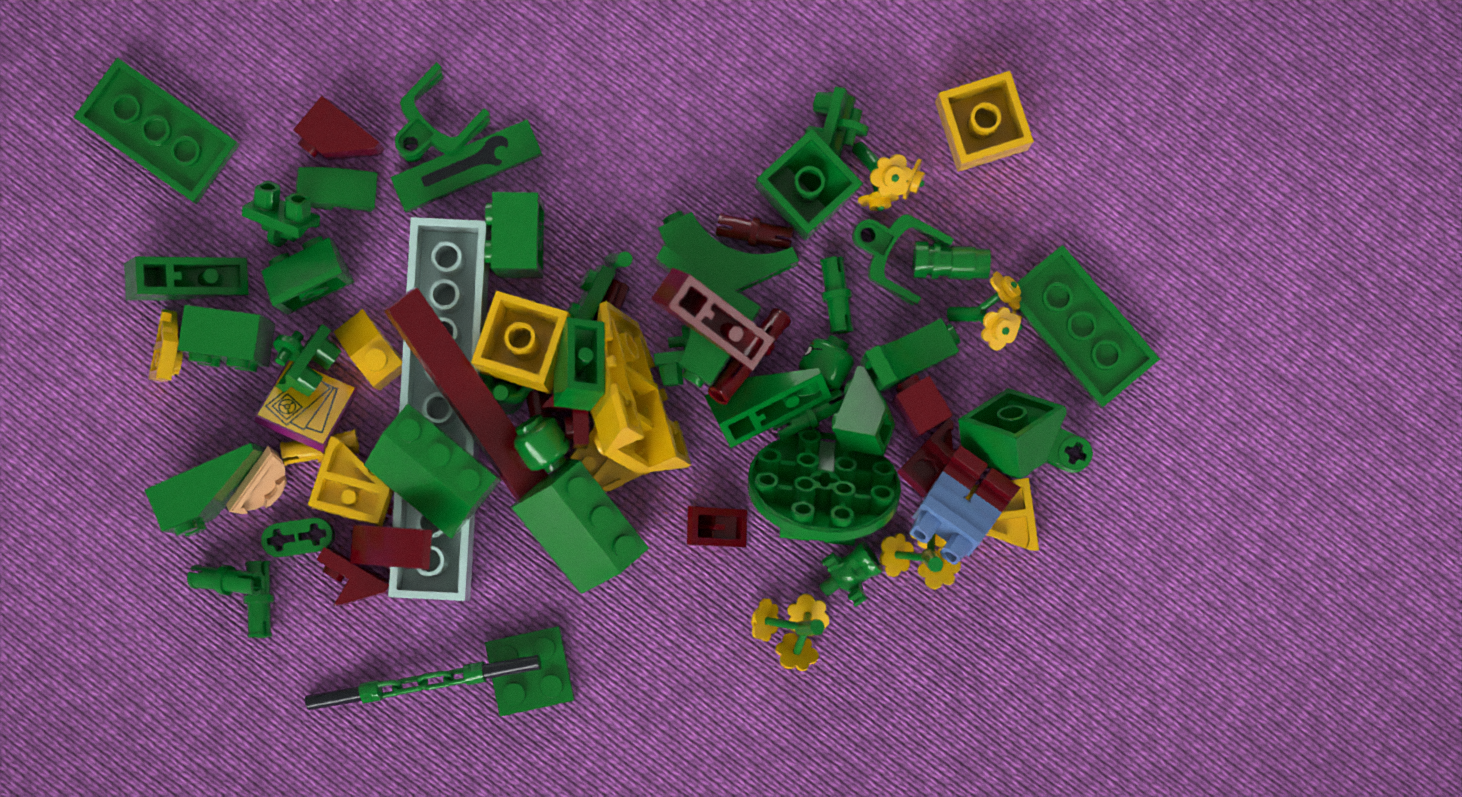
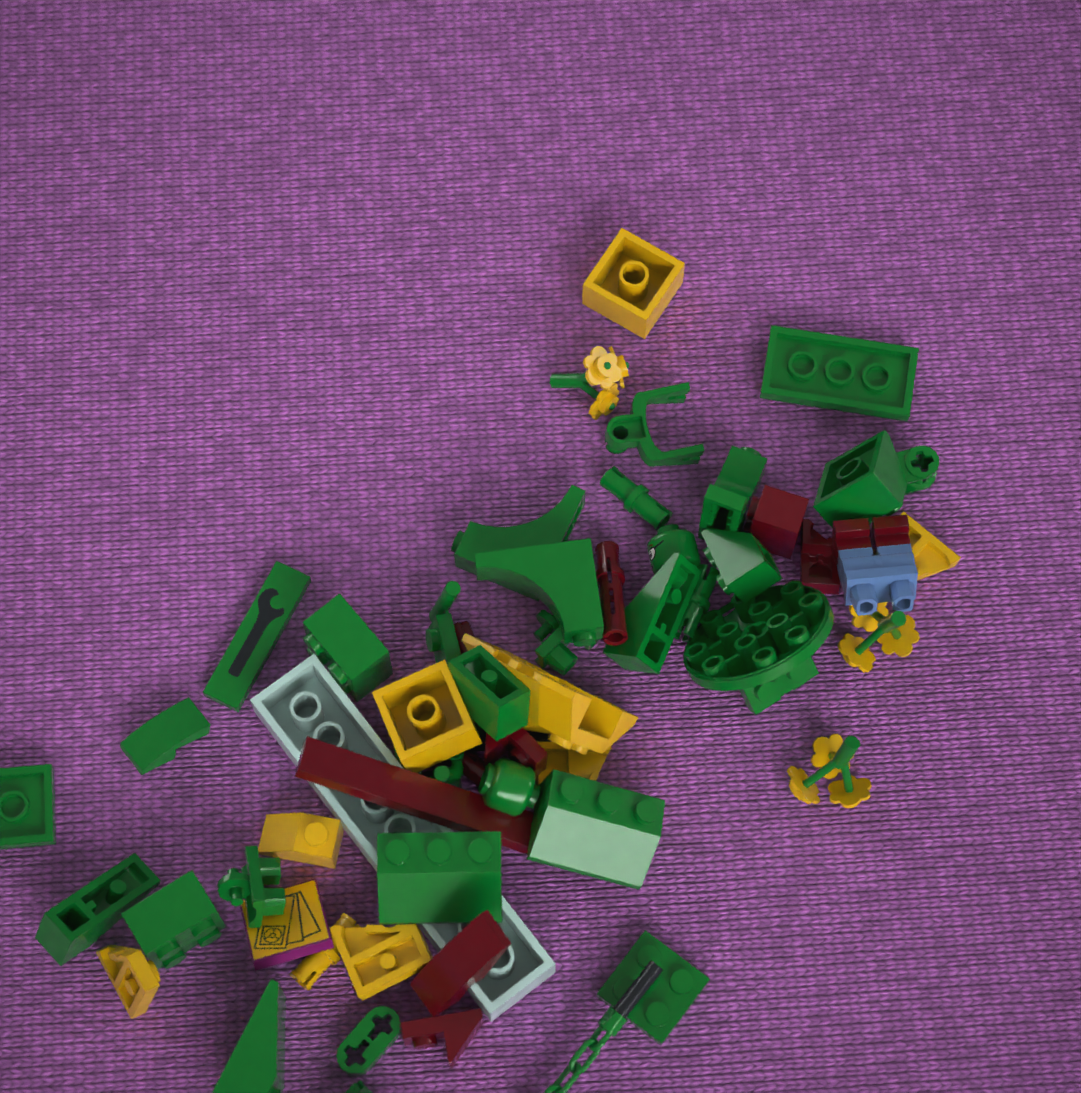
camera: 45 degrees left, 15 degrees down
(261, 485) = (302, 1021): light nougat plate -> none
(280, 218) = (139, 795): green hips -> none
(306, 276) = (199, 820): green slope -> none
(334, 134) = (129, 694): dark red slope -> none
(422, 133) = (202, 635): green piece -> none
(712, 318) = (560, 571): dark red slope -> none
(716, 527) = (698, 748): dark red slope -> none
(754, 231) = (530, 502): dark red pin -> none
(808, 184) = (542, 432): green slope -> none
(841, 121) = (512, 362): green hips -> none
(851, 572) = (835, 693): green piece -> none
(952, 261) = (700, 404): green axle -> none
(1000, 326) = (781, 410): yellow plant -> none

